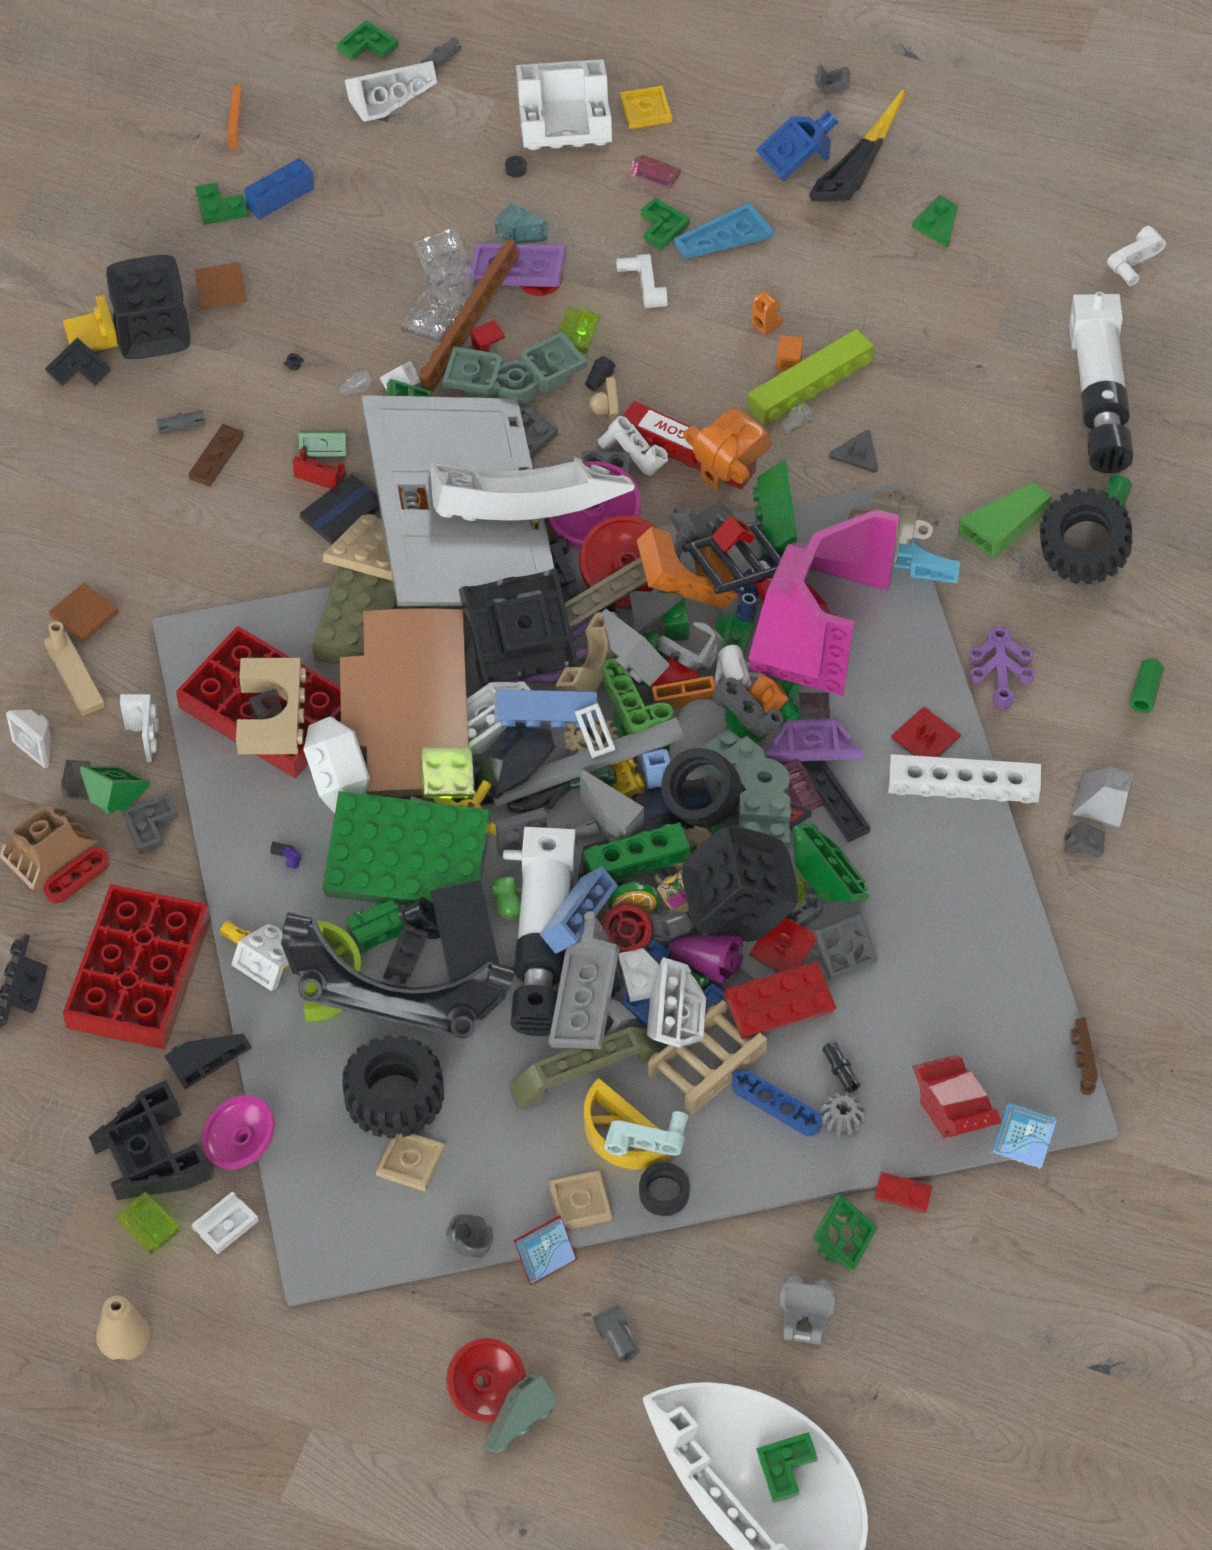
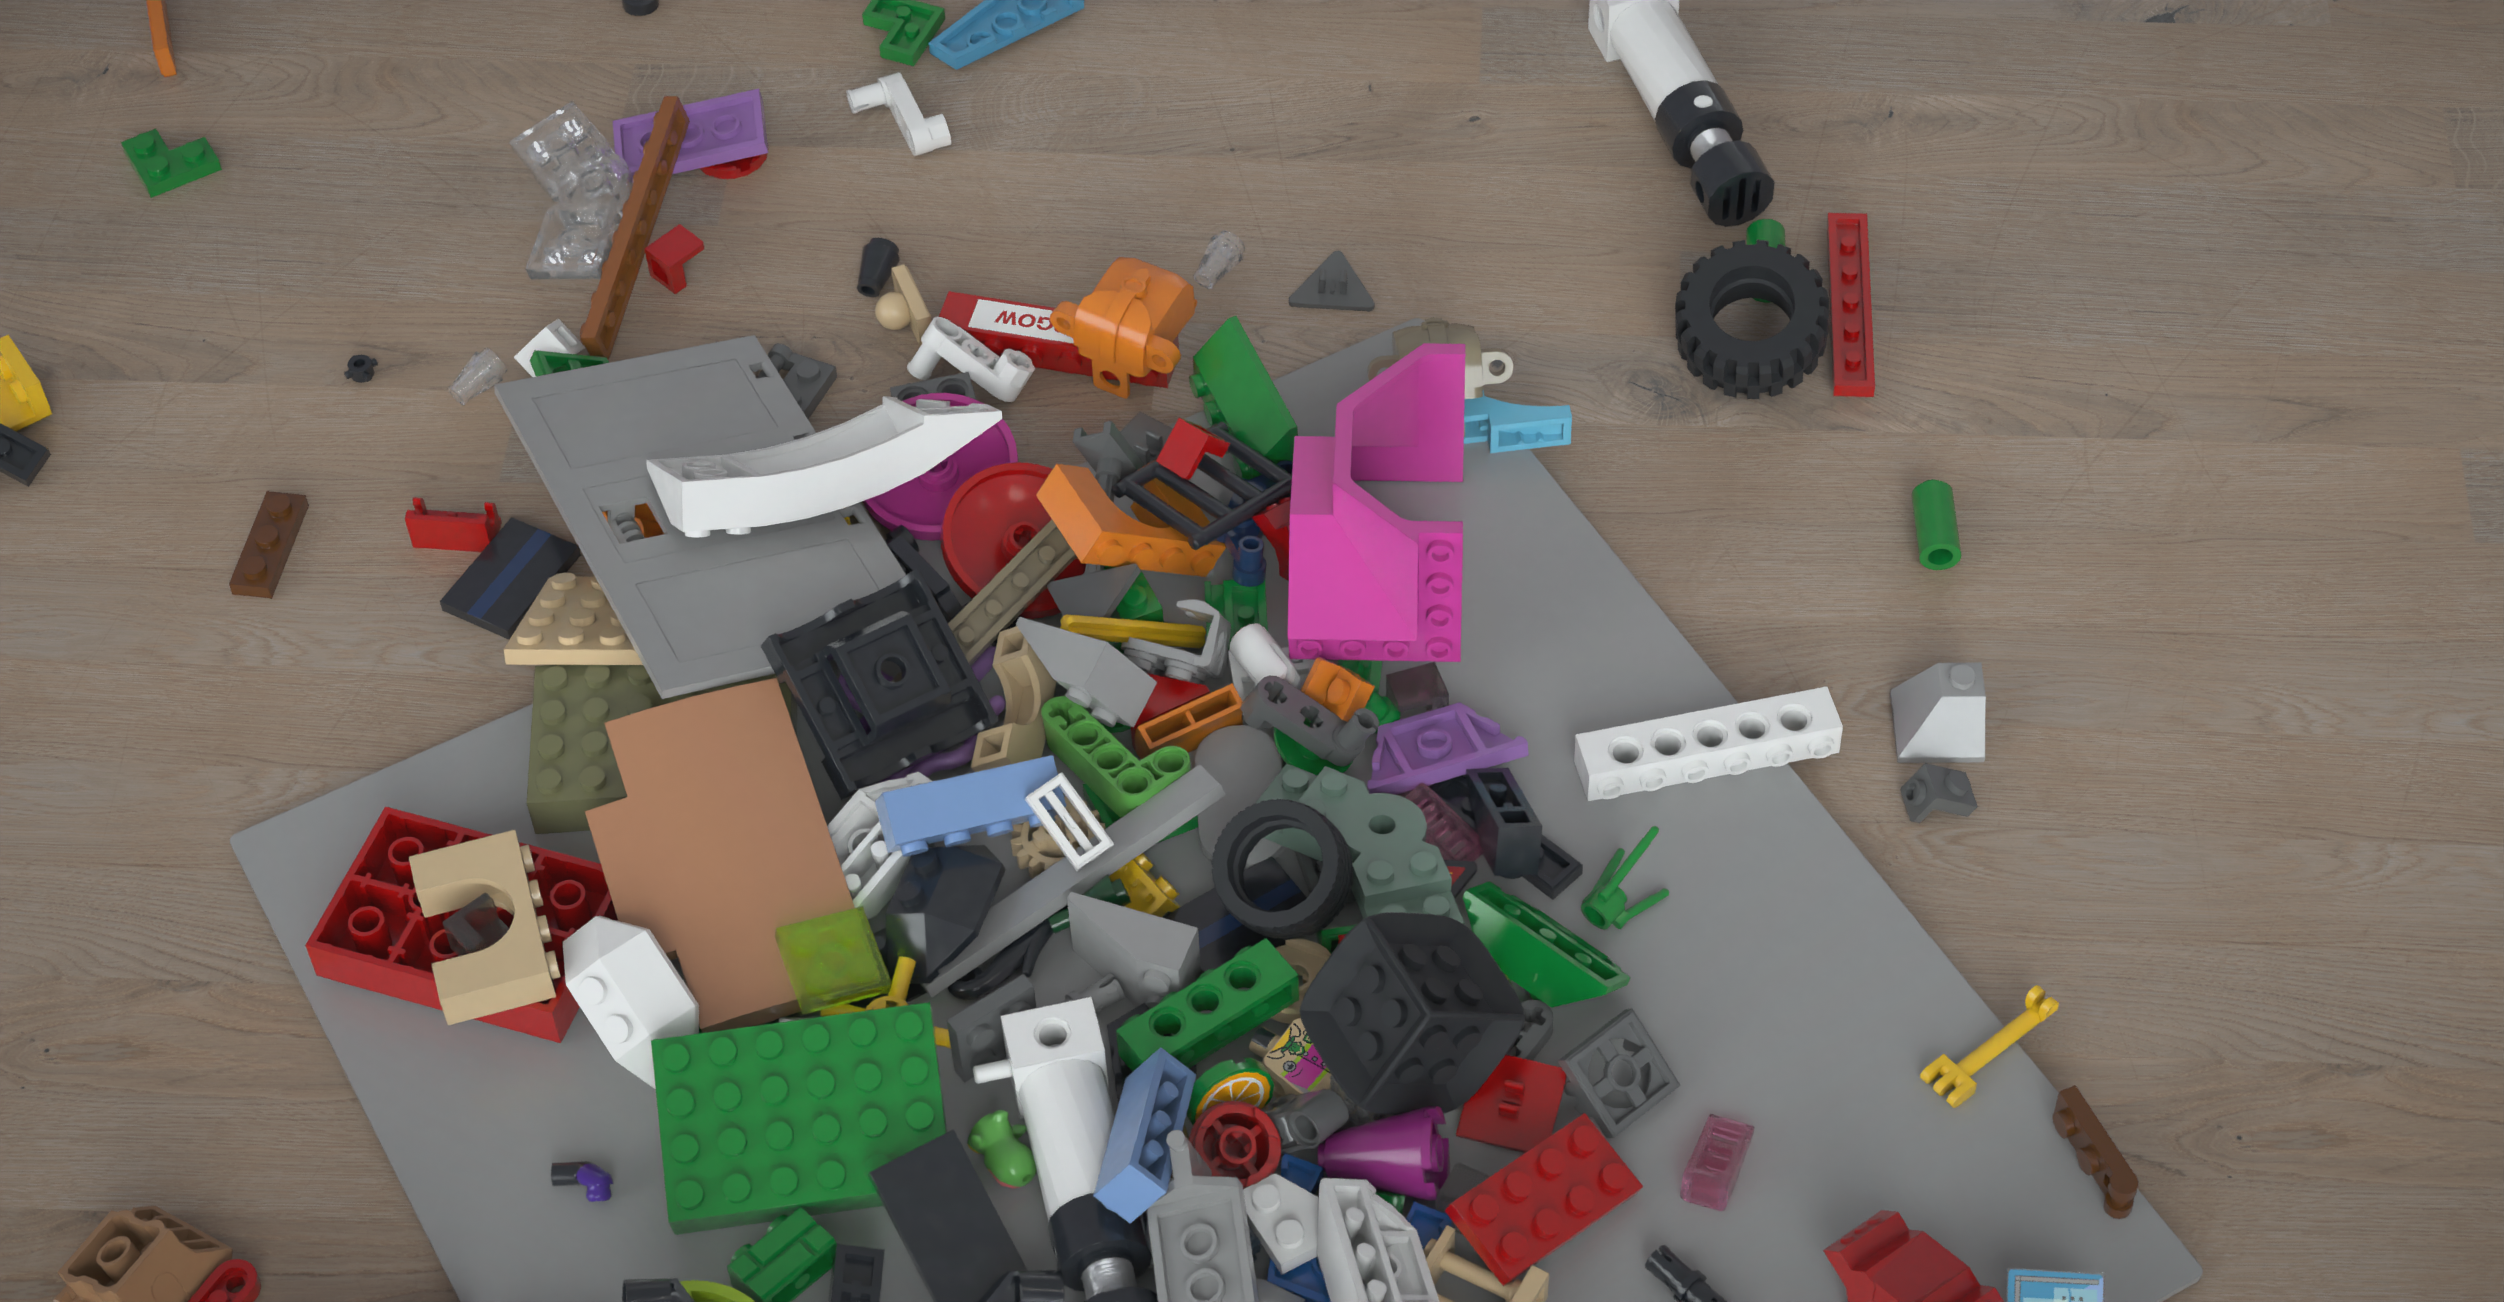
camera: 15 degrees left, 5 degrees down
(31, 734) = (57, 1090): white slope -> none
(72, 670) = (107, 960): tan piece -> none
(72, 781) = (161, 1149): clear smoke panel -> none
(83, 612) = (102, 857): dark orange tile -> none
(112, 787) = (232, 1144): green slope -> none
(141, 715) = (252, 1005): white bracket -> none
(145, 817) = (304, 1188): dark grey plate -> none
(148, 306) = (89, 334): black piece -> none
(180, 422) = (193, 506): dark grey pin -> none
(220, 285) = (204, 280): dark orange tile -> none
(279, 188) = (262, 113): blue brick -> none
(323, 442) = (448, 481): panel -> none
(421, 916) = (862, 1223): black piece -> none
(520, 225) = (678, 75): clear light blue slope -> none
(540, 369) = (777, 281): sand green plate -> none
(580, 328) = (818, 211): clear neon green plate -> none
(653, 766) = (1187, 859): light blue brick -> none
(671, 632) = (1121, 629): none -> yellow axle
(766, 309) = (1114, 110): orange leg -> none
(788, 352) = (1173, 167): orange panel -> none
(810, 377) = (1220, 190): lime brick -> none
(833, 792) = (1504, 822): none -> black slope
(873, 1018) = (1711, 1187): none -> clear pink slope
(875, 851) = (1607, 901): none -> green plant
(925, 734) = (1613, 691): red piece -> none
(1002, 663) = (1674, 514): medium lavender plant -> none
(1005, 519) = (1607, 330): bright green slope -> none
(1027, 997) = (1959, 1074): none -> yellow hinge
(1152, 540) = (1850, 305): none -> red plate

